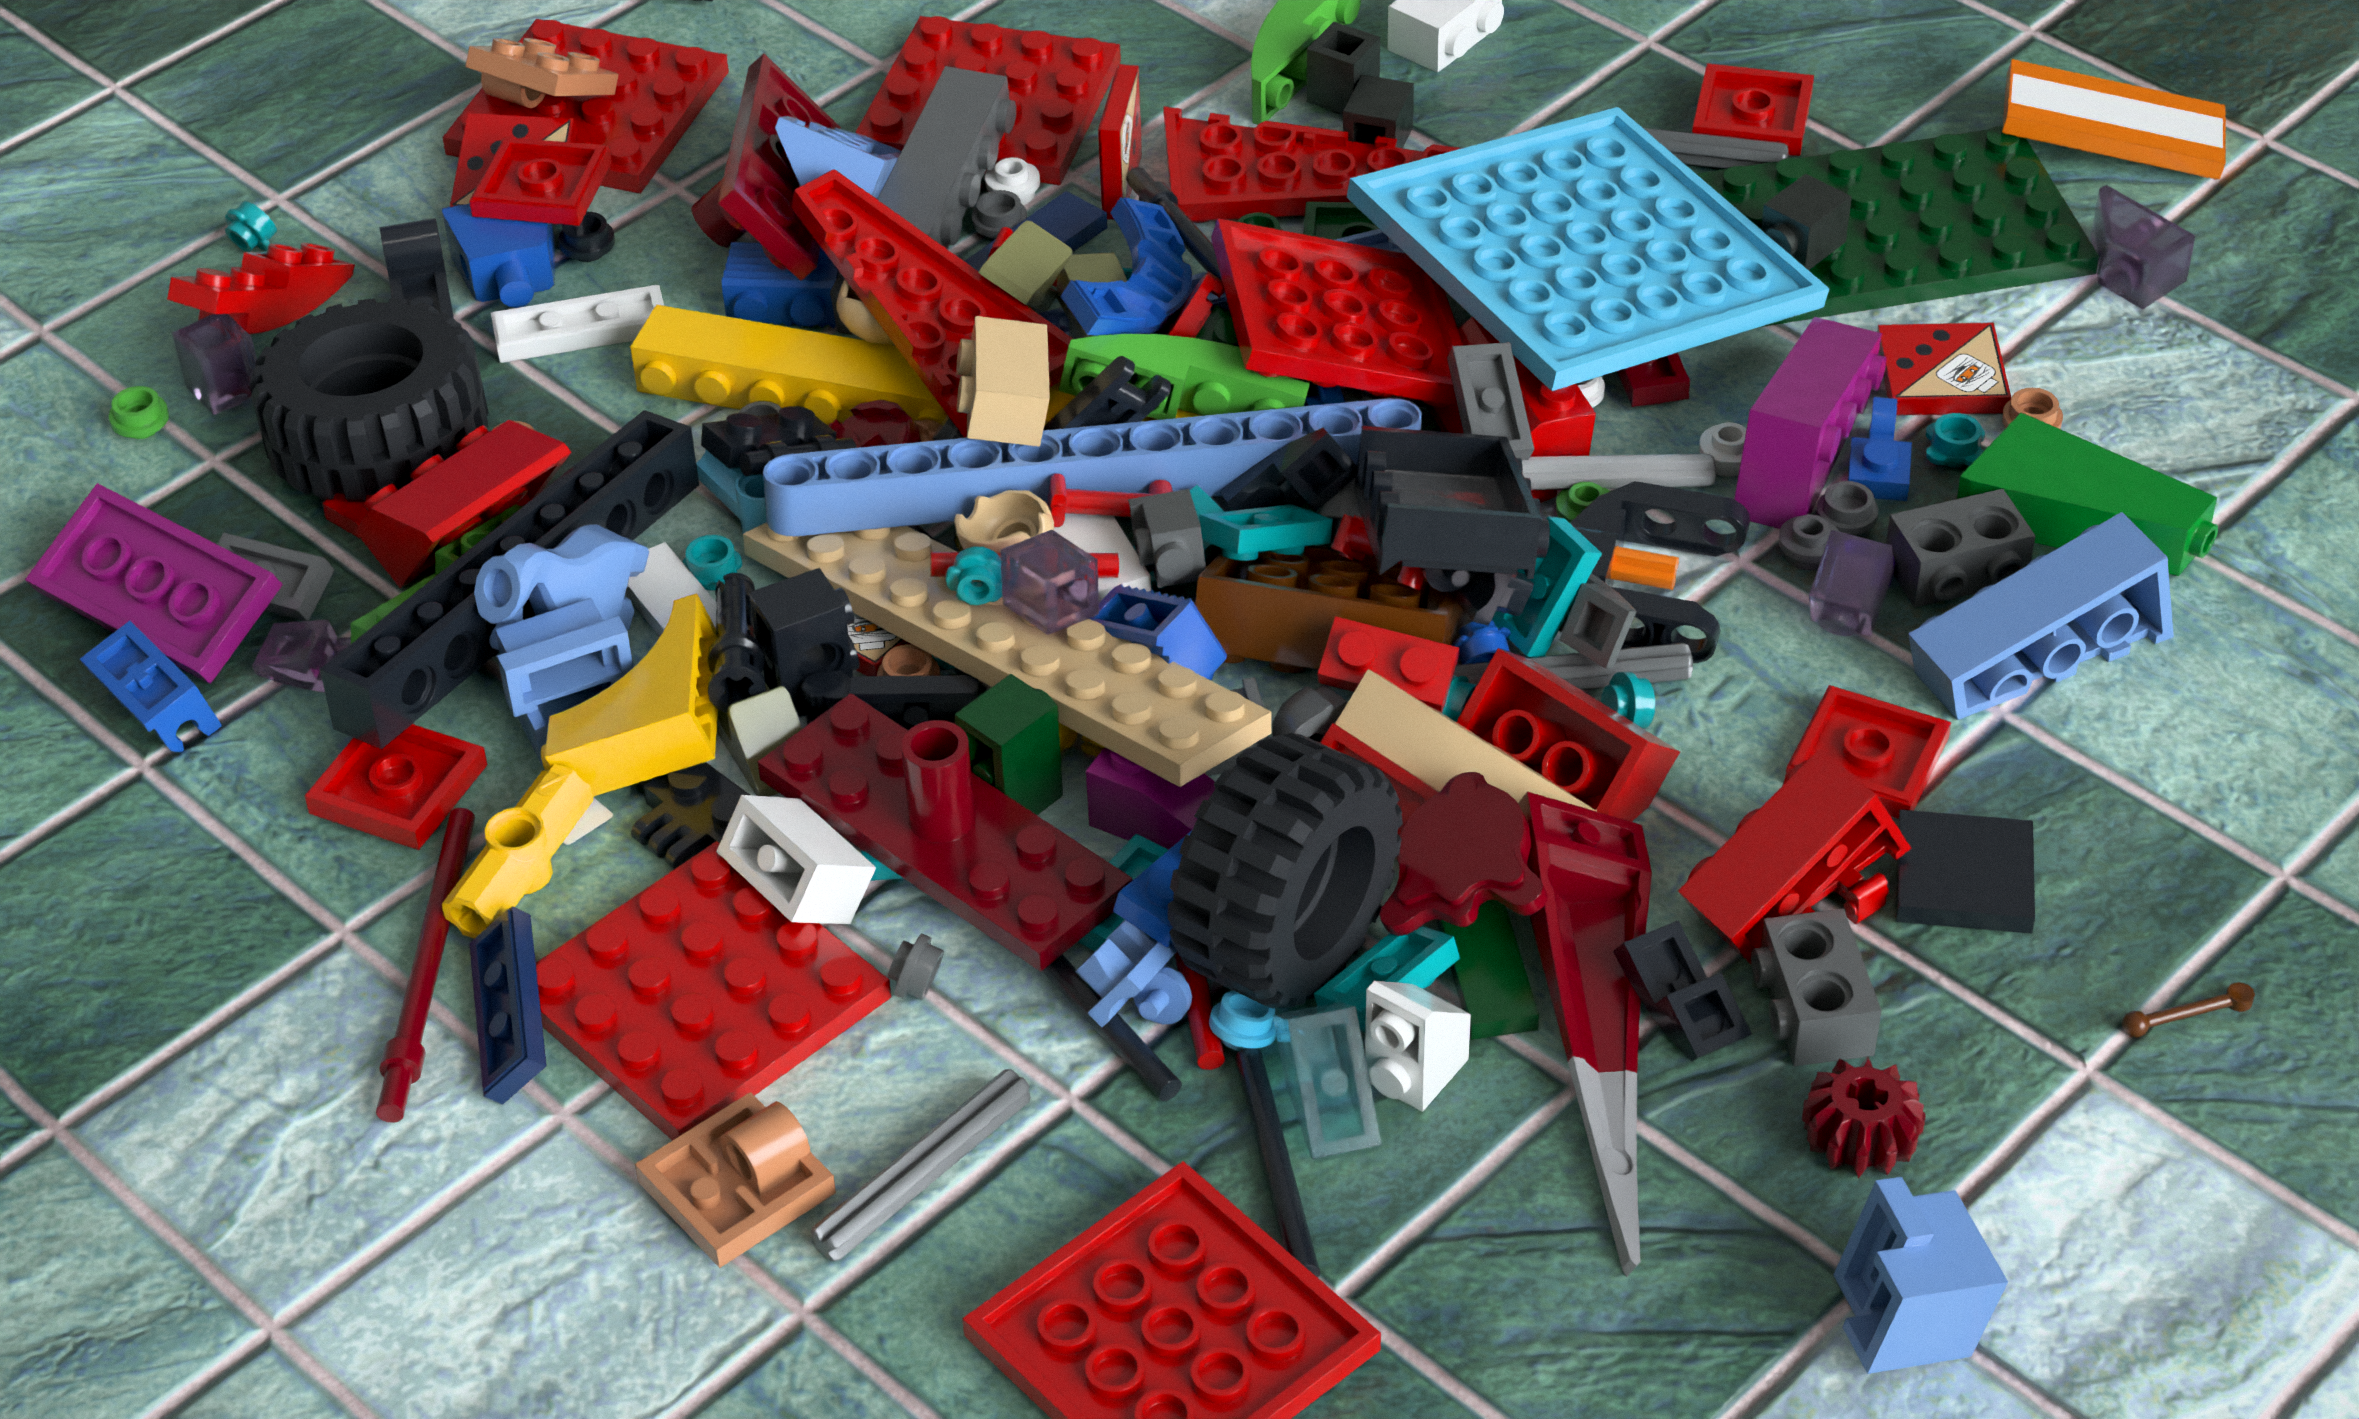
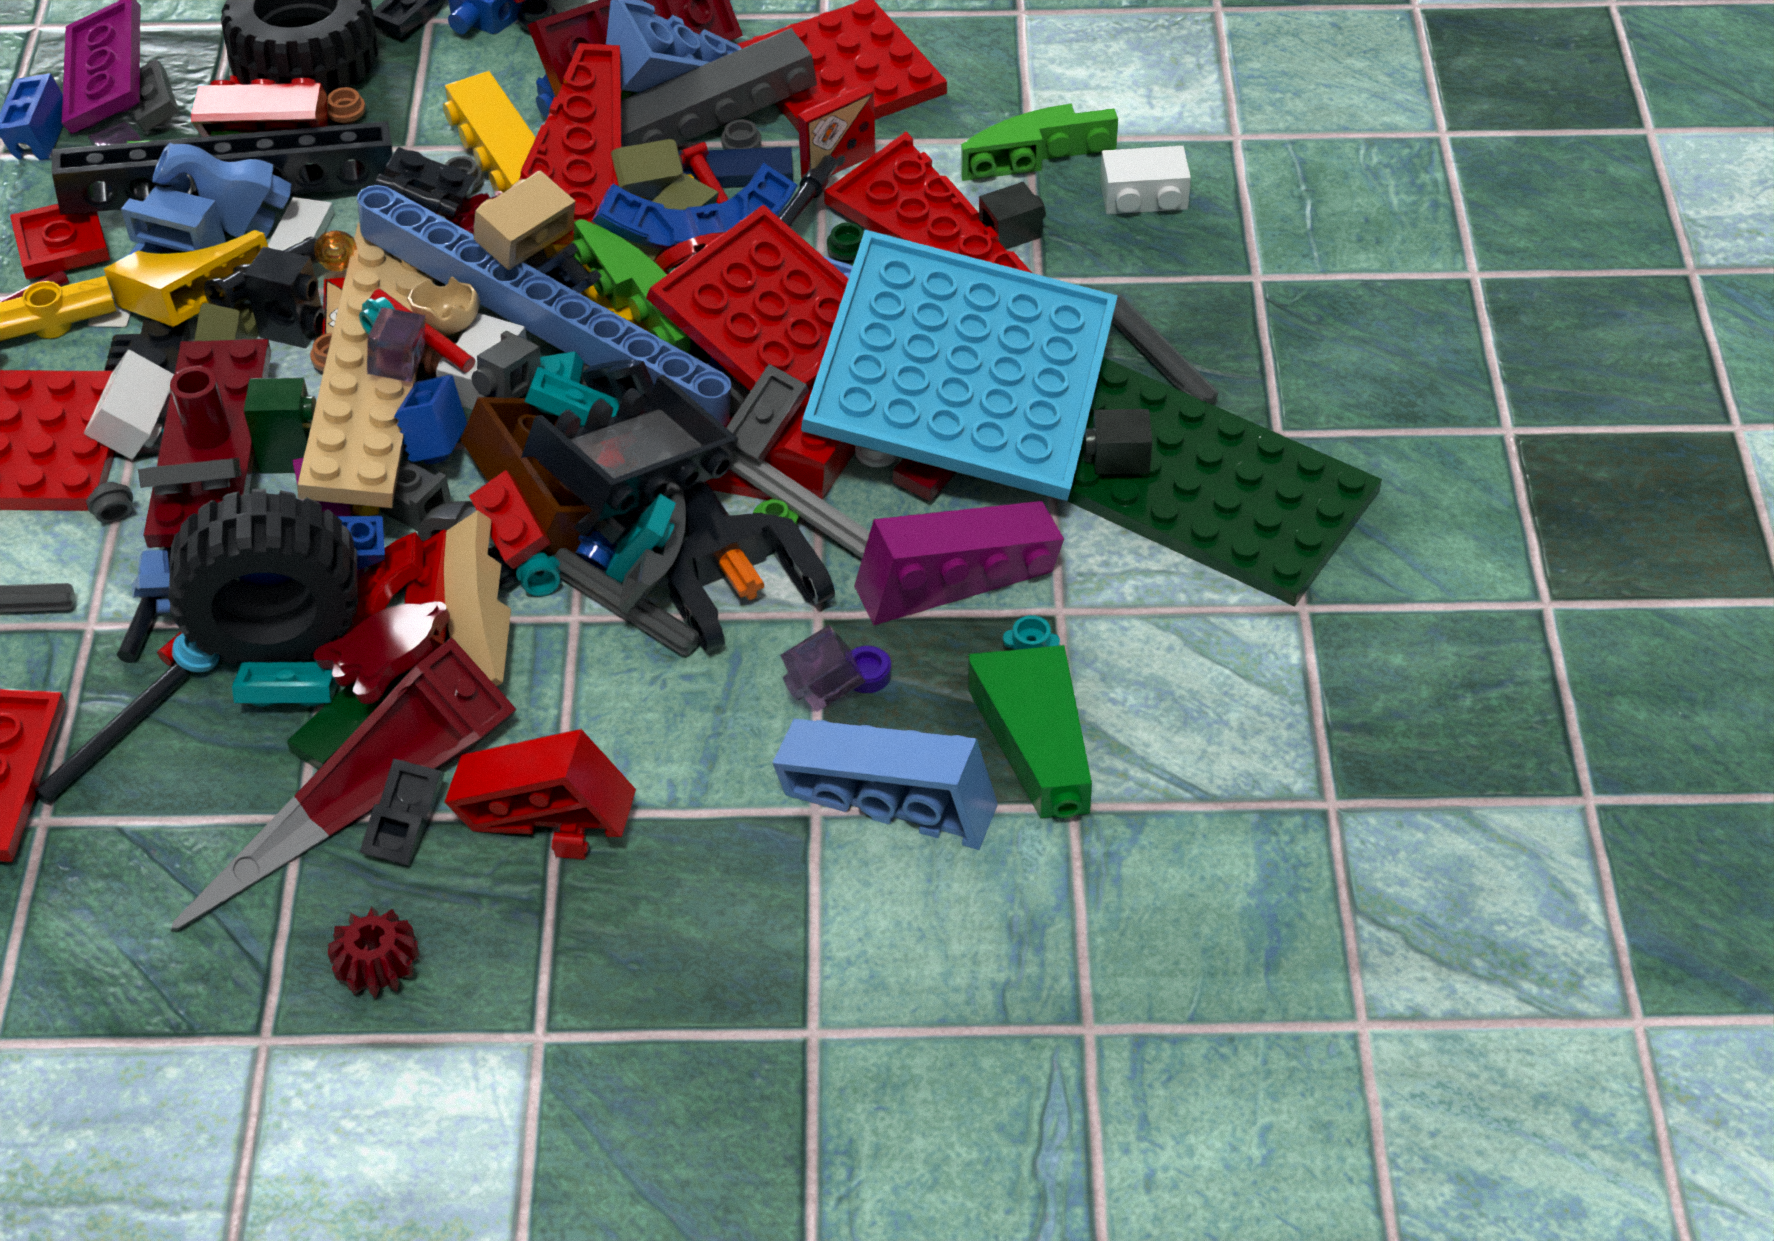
camera: 45 degrees right, 5 degrees up
(573, 323) = (469, 58): white tile -> none
(711, 559) = (337, 220): teal plate -> none
(774, 563) = (334, 258): none -> clear orange plate
(900, 698) = (289, 357): black hinge -> none
(1014, 176) = (777, 124): white plate -> none
(1042, 835) = (169, 478): none -> dark grey plate
(1093, 501) = (492, 309): red piece -> none
(1328, 1078) = (182, 706): clear light blue slope -> none
(1337, 64) = (1028, 163): pearl dark grey brick -> none
(1413, 1042) = (234, 719): white slope -> none
(1567, 736) = (549, 633): red slope -> none
(1630, 698) = (617, 640): teal plate -> none
(1754, 104) = (1237, 356): red plate -> none
(1805, 540) = (860, 628): dark grey plate -> none
(1817, 987) = (467, 872): dark grey brick -> none
(1848, 507) = (907, 629): dark grey plate -> none
(1878, 743) = (703, 771): red tile -> none
(1879, 460) = (972, 618): blue plate -> none
(1916, 1279) = (239, 1052): medium blue plate -> none
(1944, 368) = (1098, 592): tile -> none
(1958, 546) = (921, 695): dark grey brick -> none
(1966, 872) = (644, 876): black tile -> none
(2035, 403) = (1100, 657): nougat plate -> none
(2115, 119) = (1444, 518): orange tile -> none
(2138, 249) = (1318, 607): clear purple slope -> none
(2238, 998) = (672, 1070): reddish brown hinge -> none

